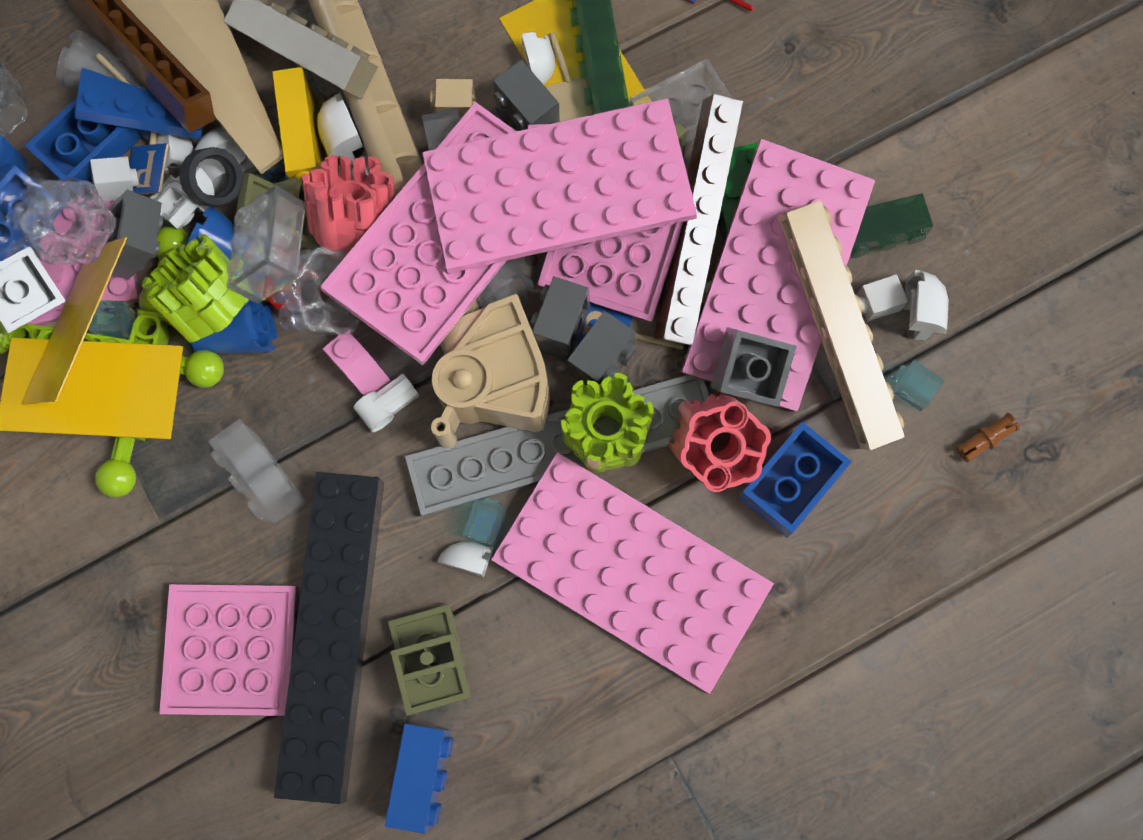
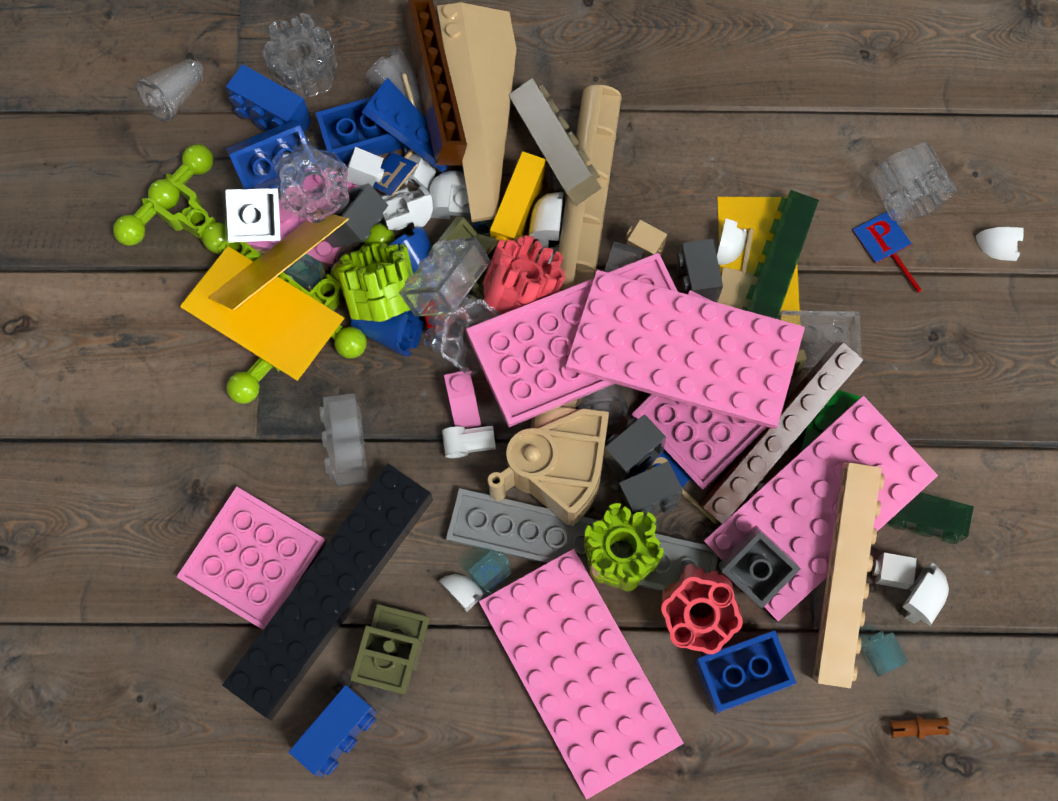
camera: 30 degrees right, 5 degrees down
(232, 169) = (452, 208): black tyre -> none

